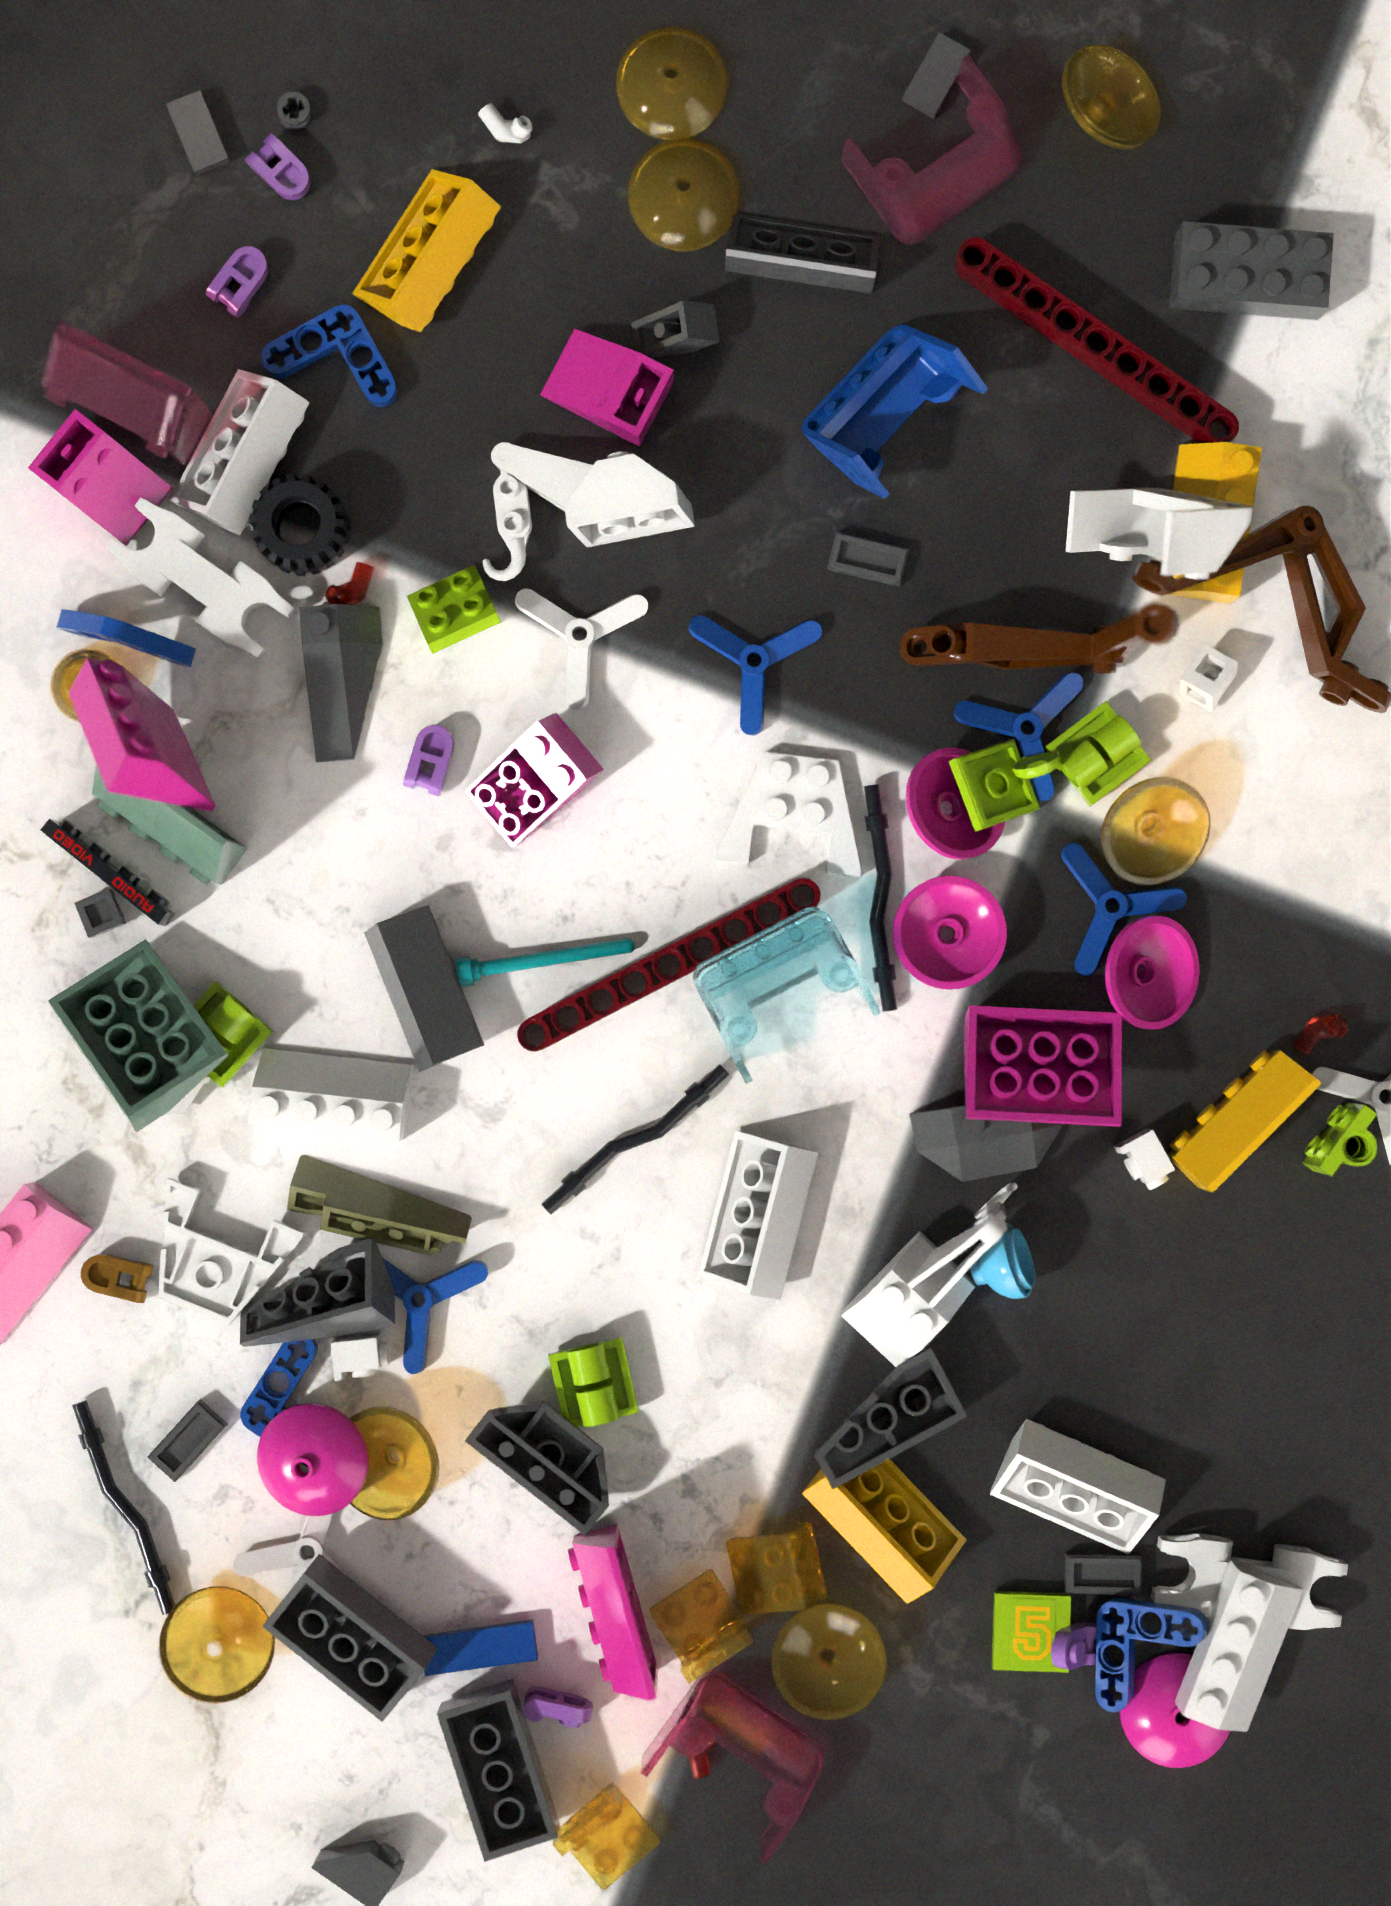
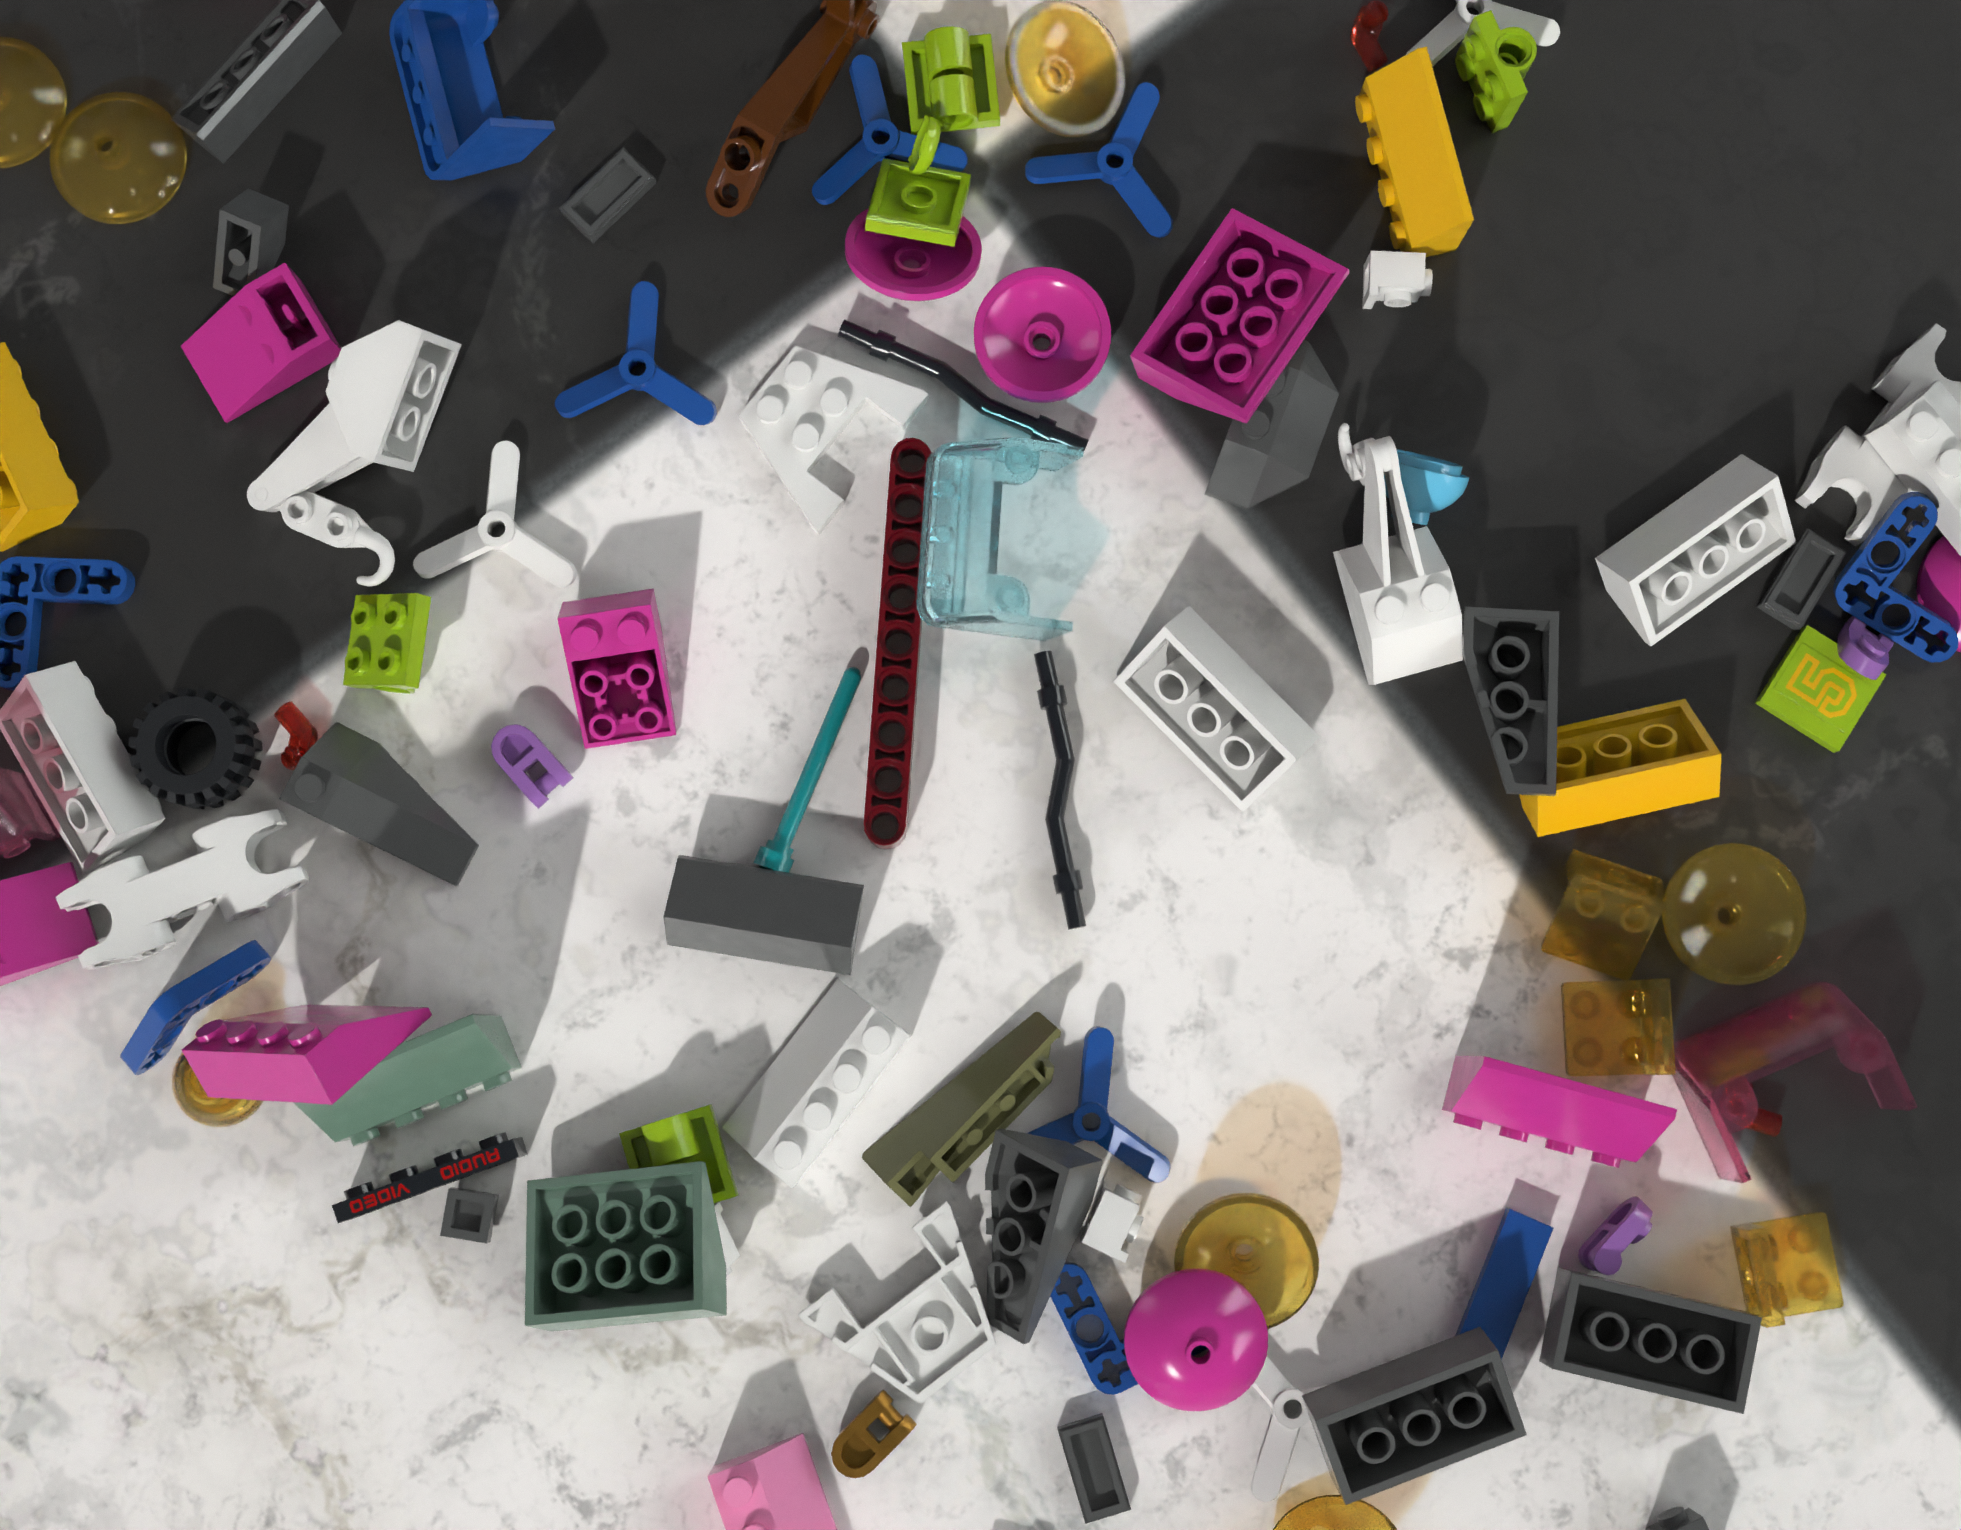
camera: 60 degrees left, 5 degrees down
(546, 1459) = (1345, 1082): dark grey wedge -> none
(594, 1383) = (1292, 988): lime plate -> none
(1152, 972) = (1208, 157): dark pink dish -> none

